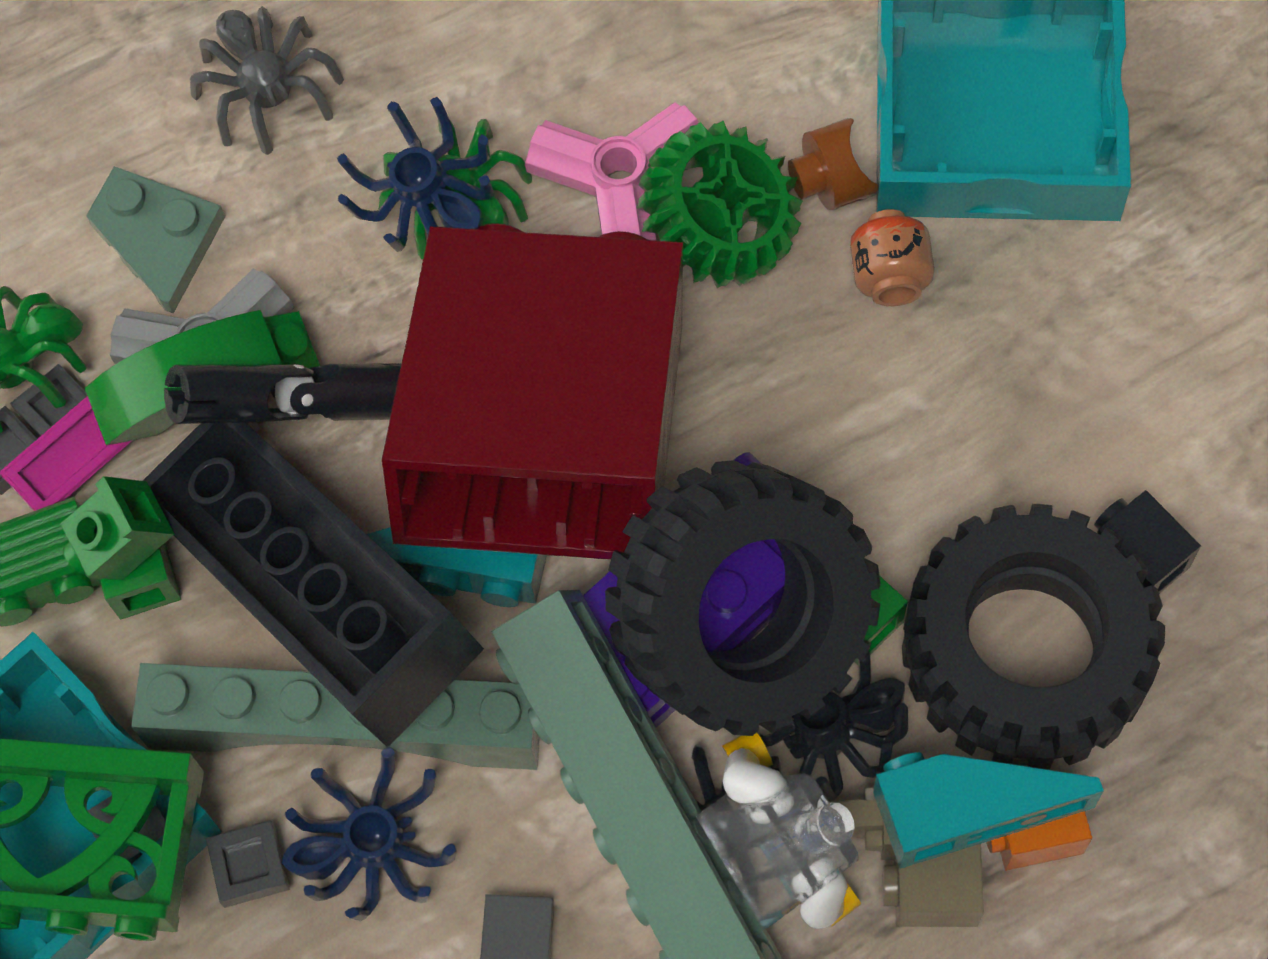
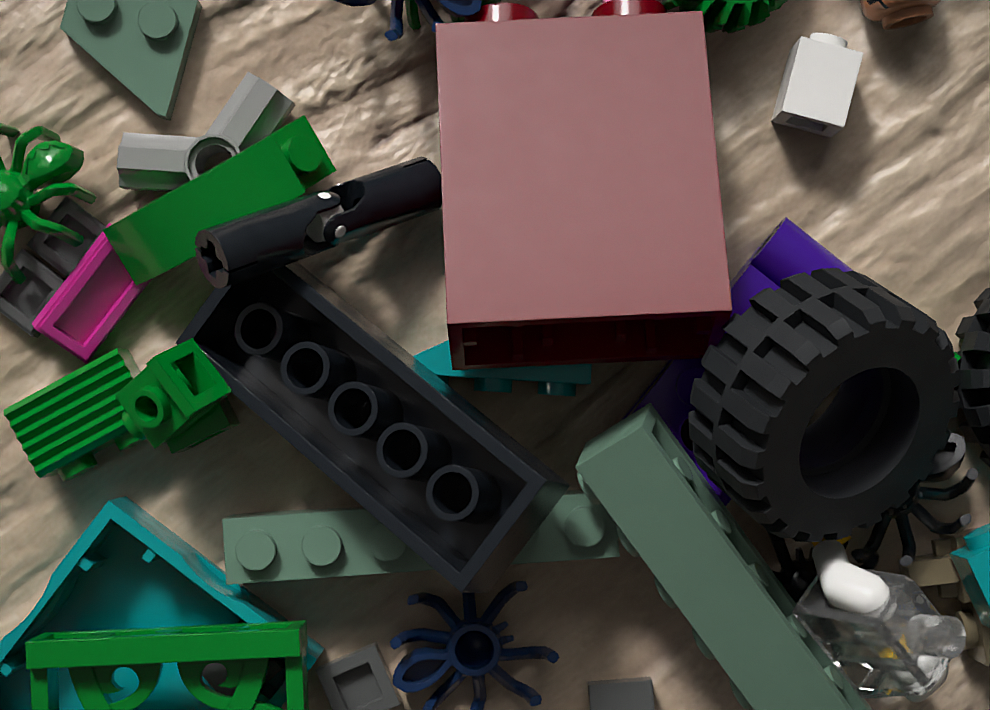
camera: 15 degrees left, 20 degrees up
(800, 343) = (817, 84): none -> white brick

